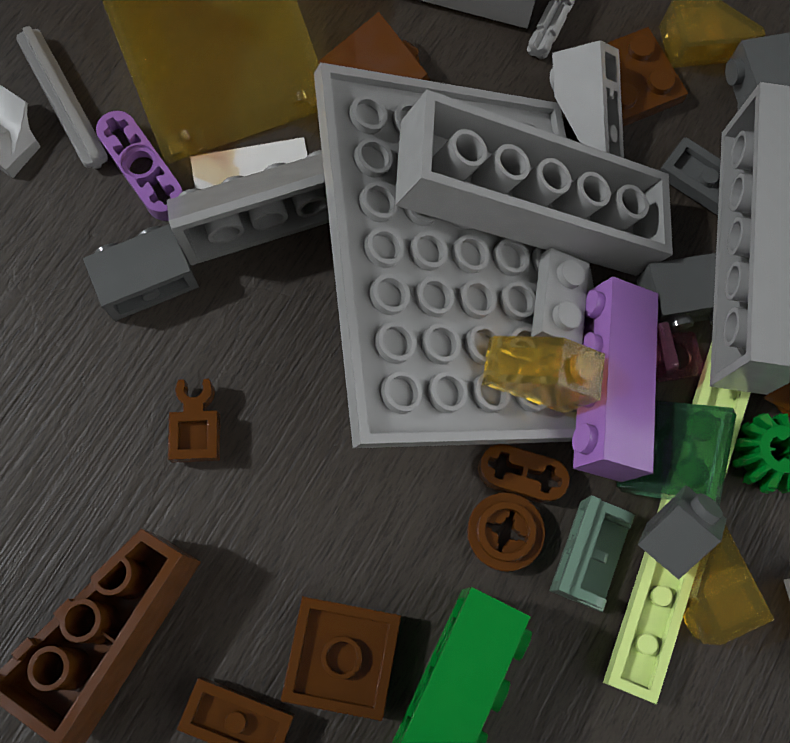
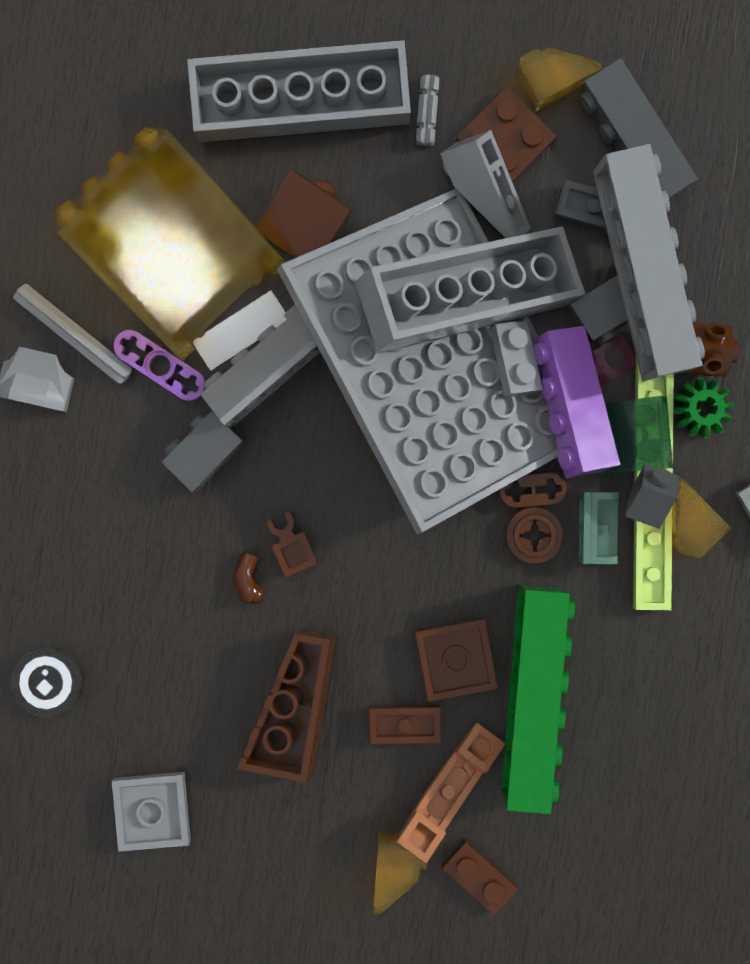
camera: 15 degrees left, 15 degrees up
(117, 443) = (243, 580): none -> reddish brown arm
(545, 370) = (522, 423): clear yellow slope -> none

